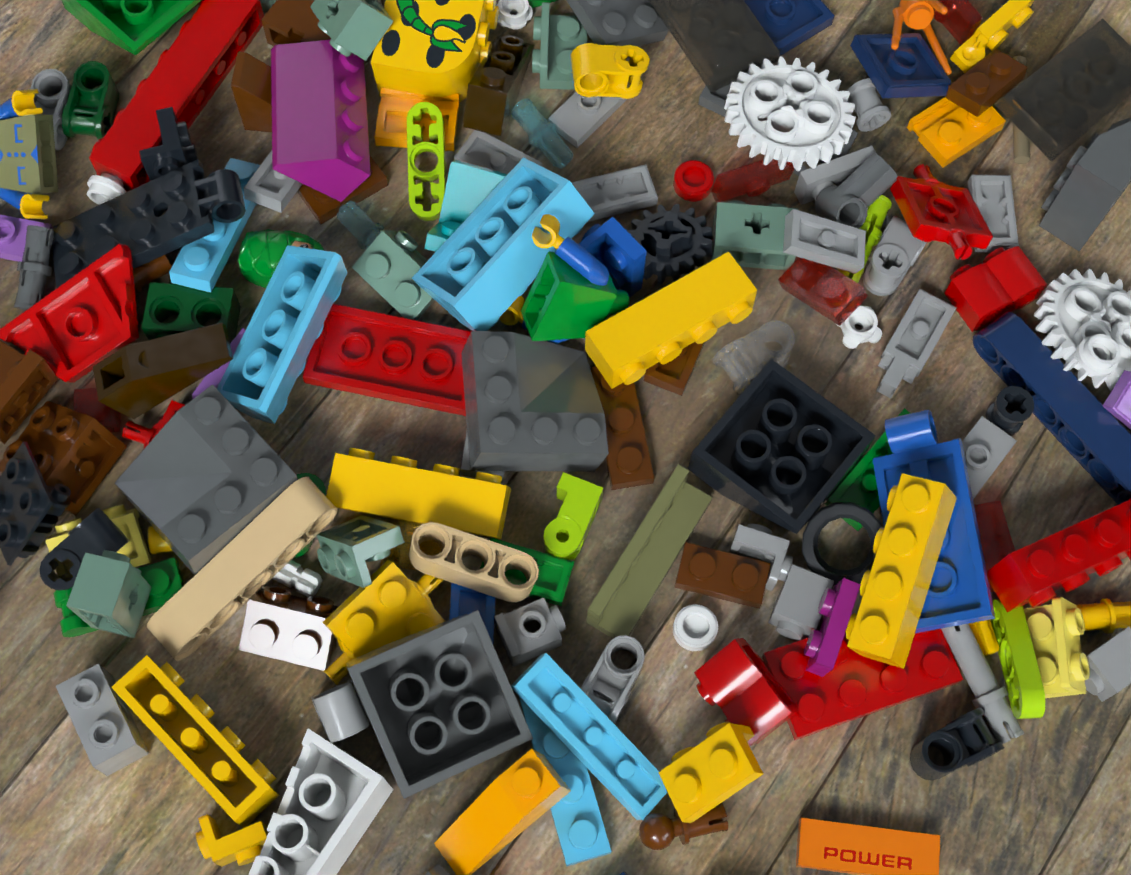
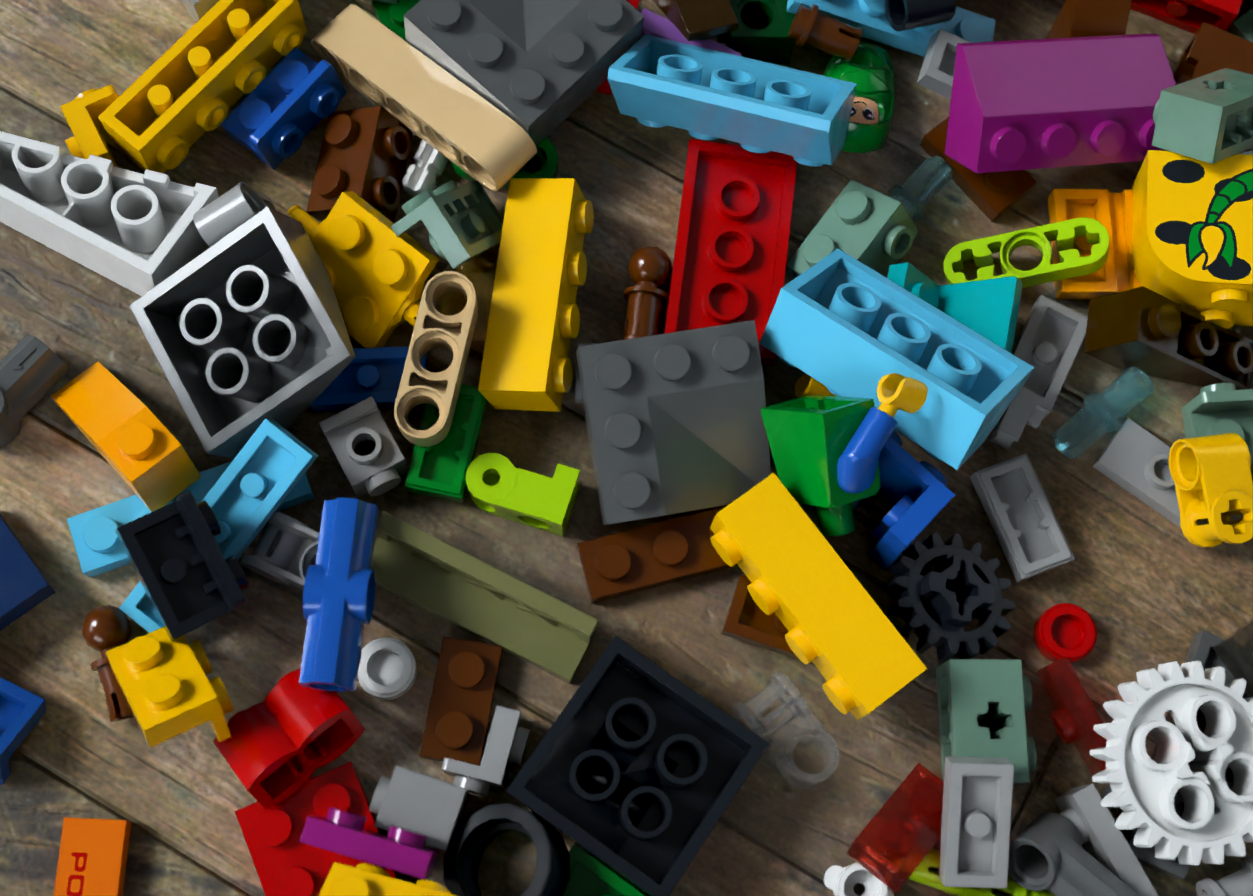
camera: 80 degrees right, 5 degrees up
(230, 684) = (285, 107): none -> blue bracket
(233, 271) = (824, 32): none -> reddish brown pin
(404, 417) = (649, 271): none -> reddish brown pin
(622, 753) = (183, 565): none -> black bracket
(653, 638) = (339, 595): none -> blue piece

